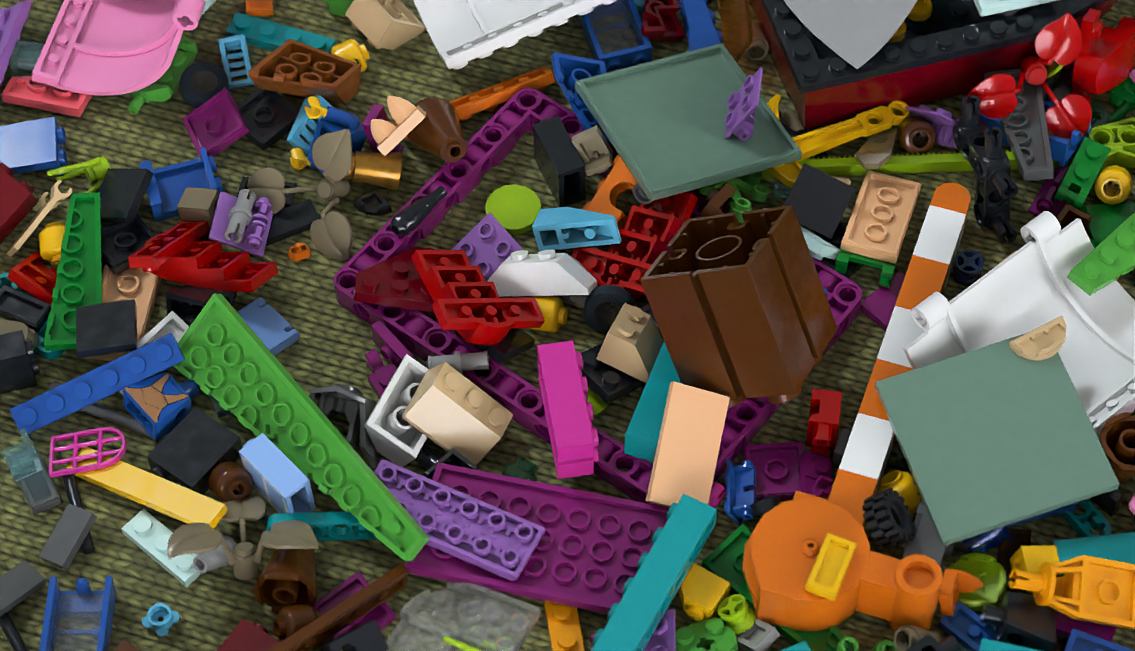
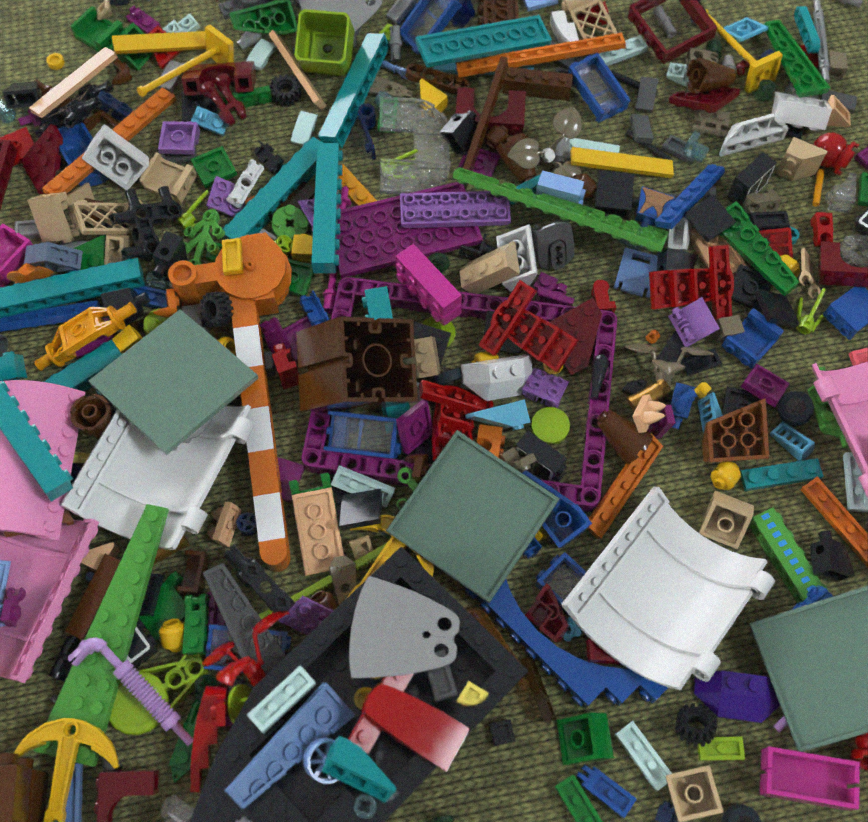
camera: 150 degrees right, 10 degrees up
(75, 446) = (680, 158): dark pink window -> none
(240, 216) = (695, 318): light grey pin -> none
(331, 322) = (601, 297): none -> red leg
(463, 361) = (499, 298): light grey pin -> none
(687, 445) = (348, 293): light nougat tile -> none
(743, 107) = (438, 532): medium lavender hinge -> none
(766, 504) = (292, 299): black plate -> none
(1042, 341) = (162, 438): tan tile -> none

